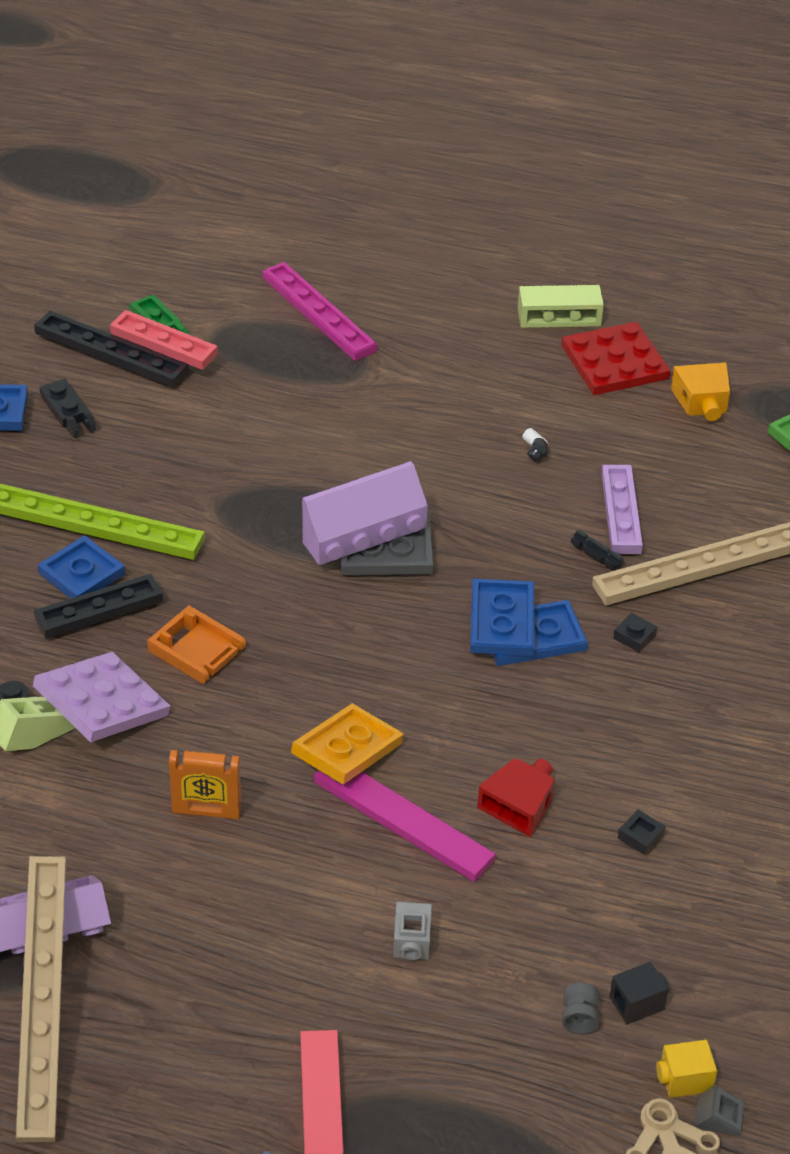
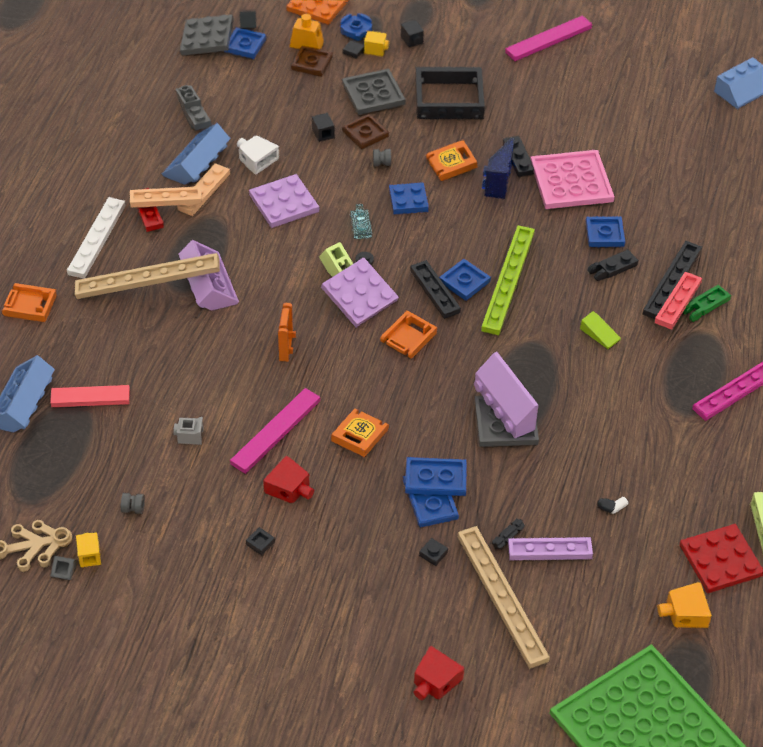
camera: 90 degrees right, 5 degrees up
(204, 432) = (599, 330): none -> lime slope
(347, 743) = (324, 398): light orange plate -> none
(406, 699) = (361, 427): none -> orange container
(639, 992) = (141, 530): black brick -> none

